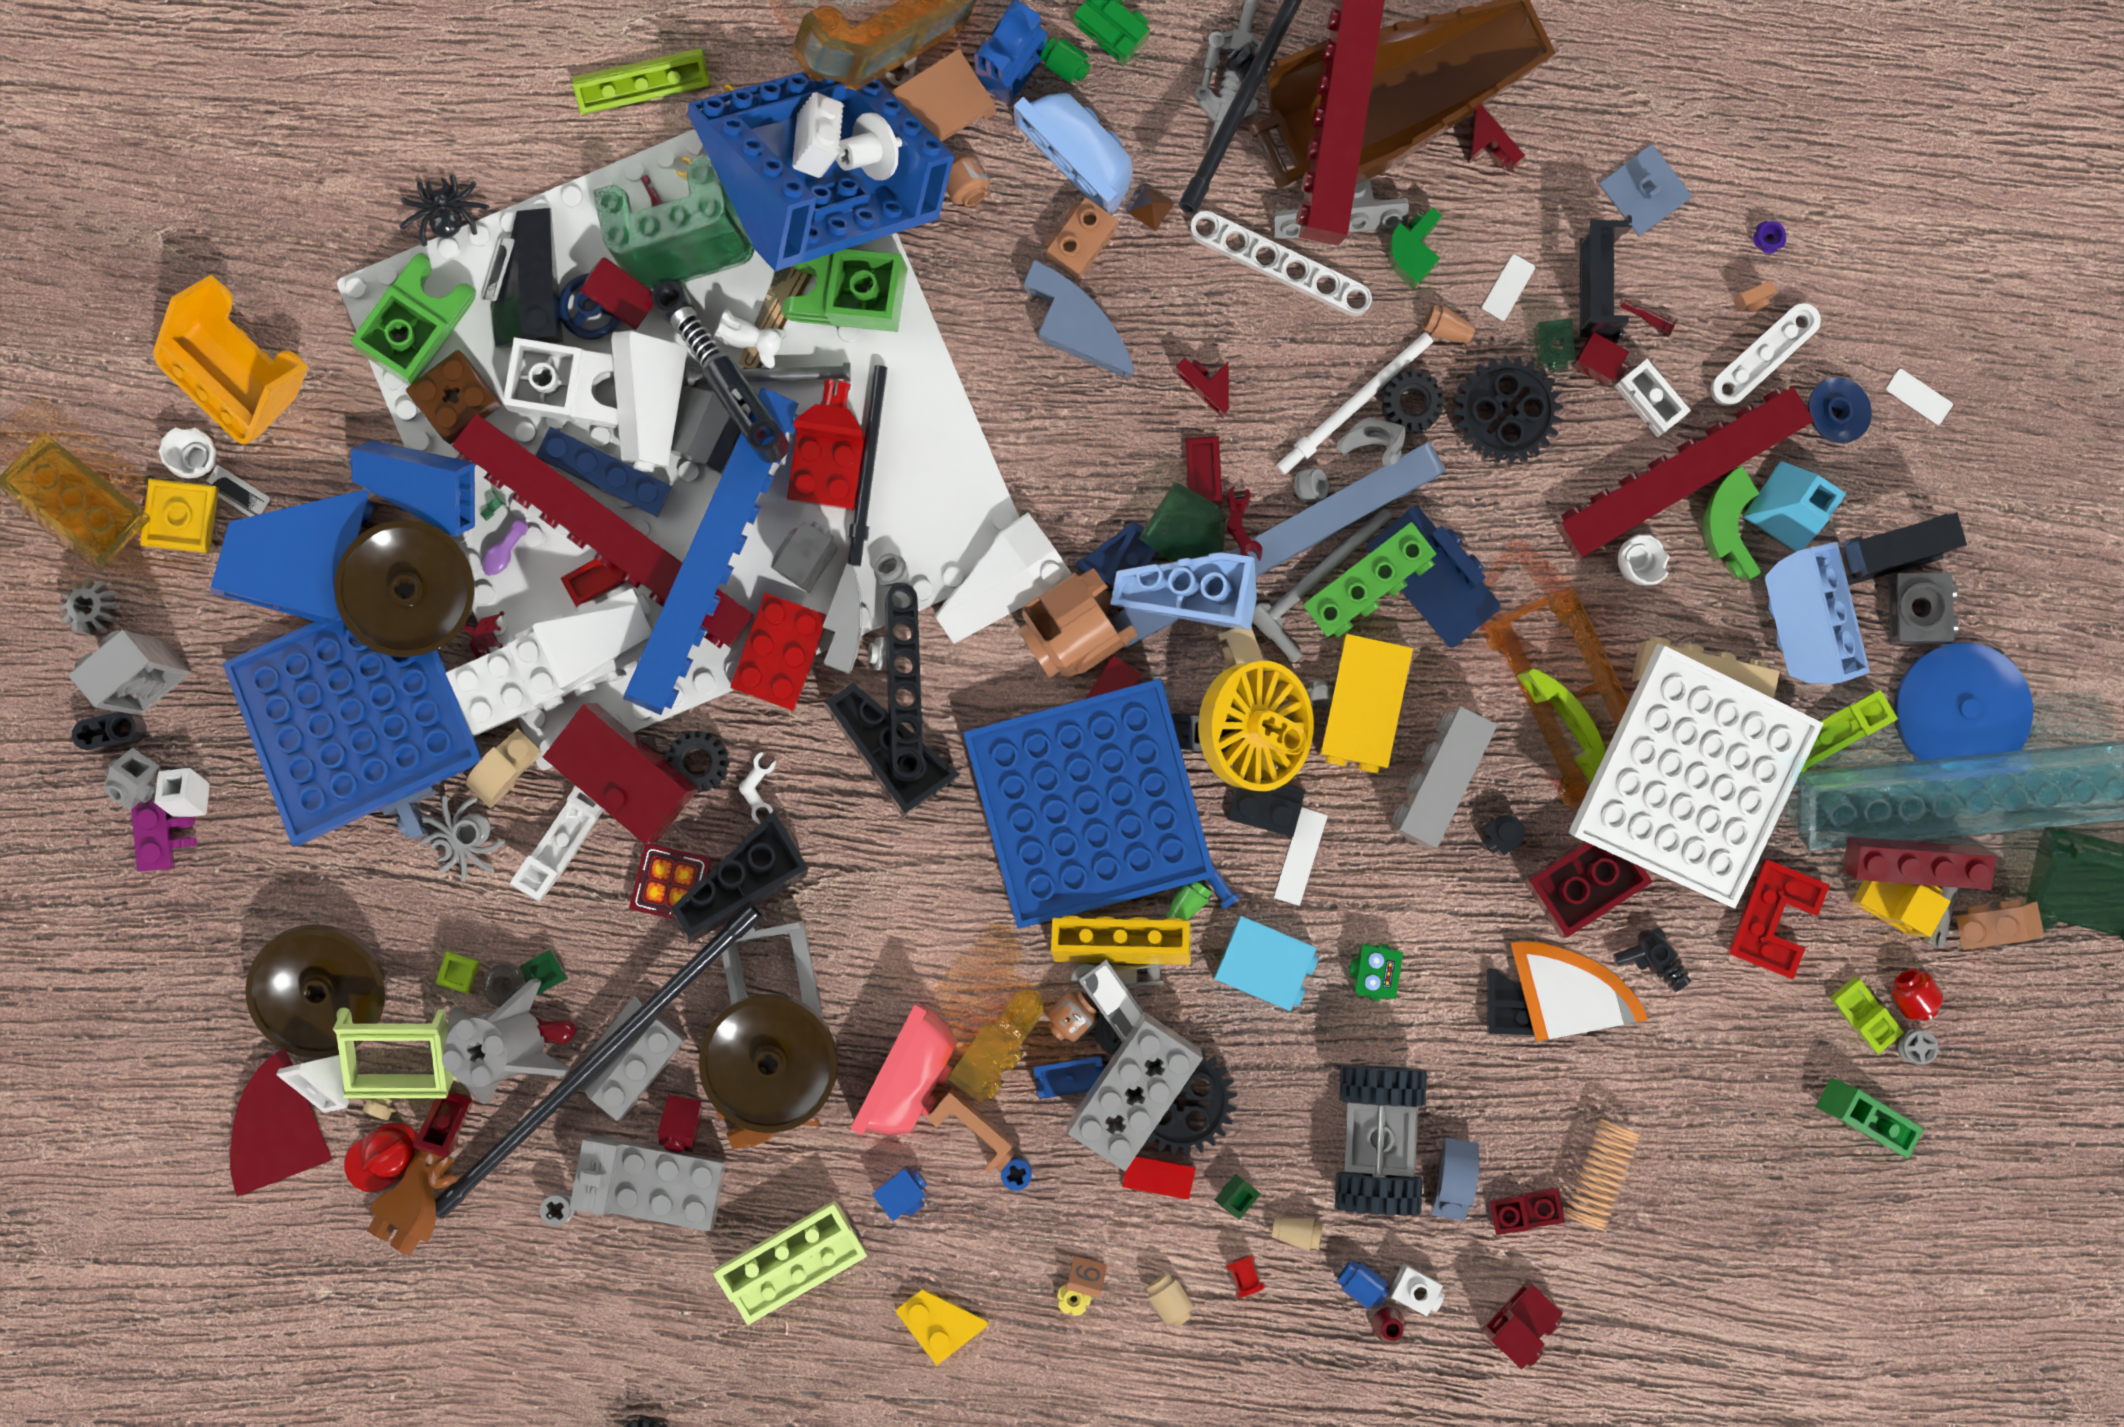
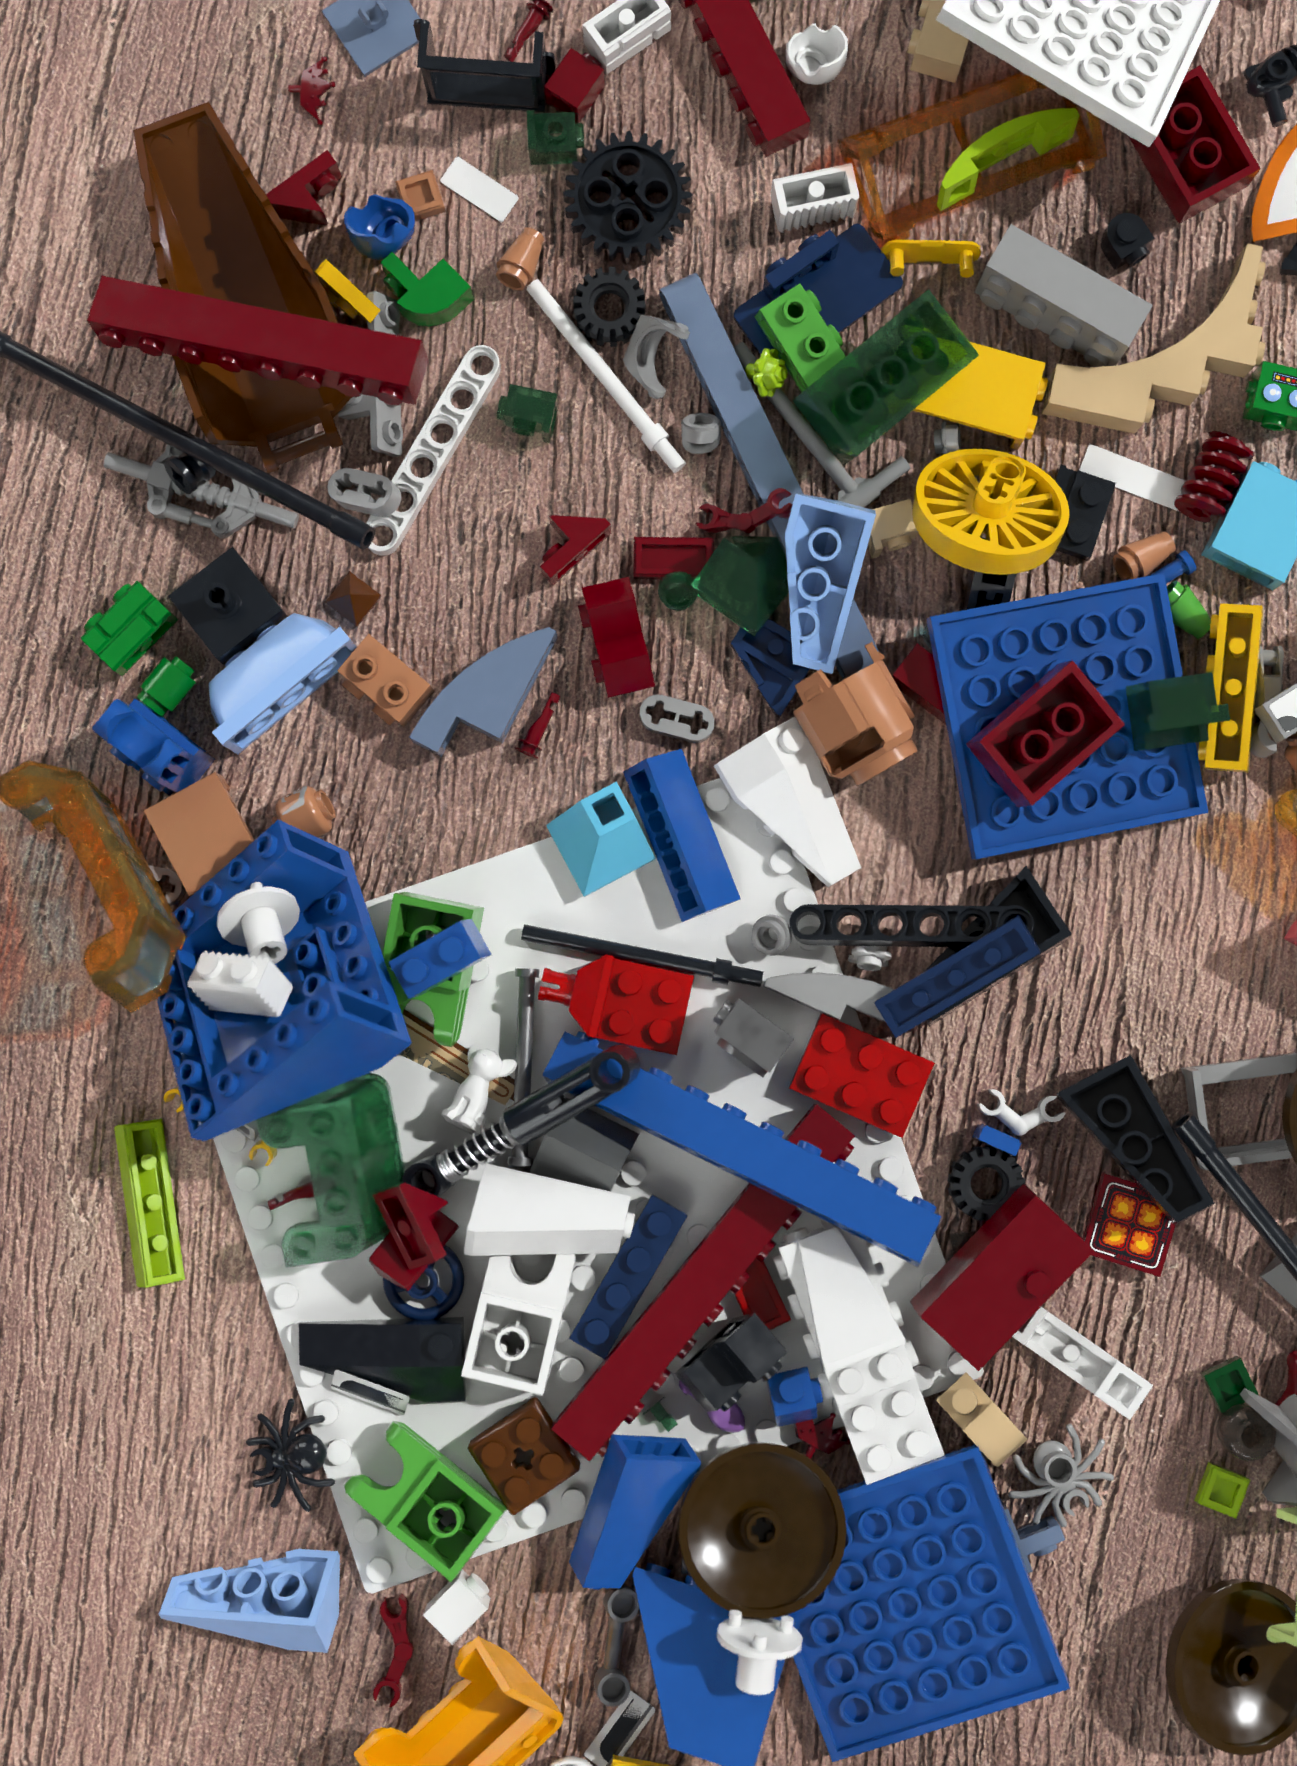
camera: 85 degrees left, 0 degrees up
(276, 481) = (609, 1680): none -> flat silver bar
(291, 312) = (403, 1648): none -> dark red piece
(311, 586) = (759, 1647): none -> white piece
(325, 203) = (270, 1602): none -> light blue wedge
(331, 353) = (458, 1606): none -> white brick
(513, 609) = (794, 1396): none -> blue brick
(537, 554) = (734, 1356): none -> black brick
(640, 283) = (407, 1217): none -> dark red slope
(734, 767) = (997, 1139): none -> blue tile
(848, 293) = (439, 958): none -> blue brick
(861, 716) = (957, 976): none -> dark blue plate
(960, 424) = (600, 839): none -> medium azure slope
(969, 491) = (681, 834): none -> blue brick
(1052, 368) = (536, 731): none -> dark red piece
(1060, 480) = (679, 709): none -> light grey beam
(1067, 777) = (1045, 734): none -> dark red brick
(1096, 886) = (1173, 711): none -> clear green plate
(1118, 430) = (618, 637): none -> dark red brick
(1134, 105) = (227, 605): none -> black brick
(1174, 471) = (675, 591): none -> clear green plate
(1231, 863) = (1143, 556): none -> nougat cone
(1233, 207) = (361, 499): none -> light grey beam
(1302, 918) = (1211, 477): none -> dark red piece
(1317, 341) = (529, 411): none -> clear green brick
(1357, 627) = (885, 377): none -> clear green brick
(1363, 535) = (767, 372): none -> lime plant
(1403, 178) = (344, 294): none -> yellow wing
(1420, 918) = (1120, 394): none -> tan arch
(1465, 204) = (380, 226): none -> blue hair
(1478, 641) = (941, 251): none -> yellow piece
(1497, 238) = (421, 194): none -> nougat tile
(1517, 565) = (814, 197): none -> white brick
(1583, 141) = (312, 88): none -> dark red piece

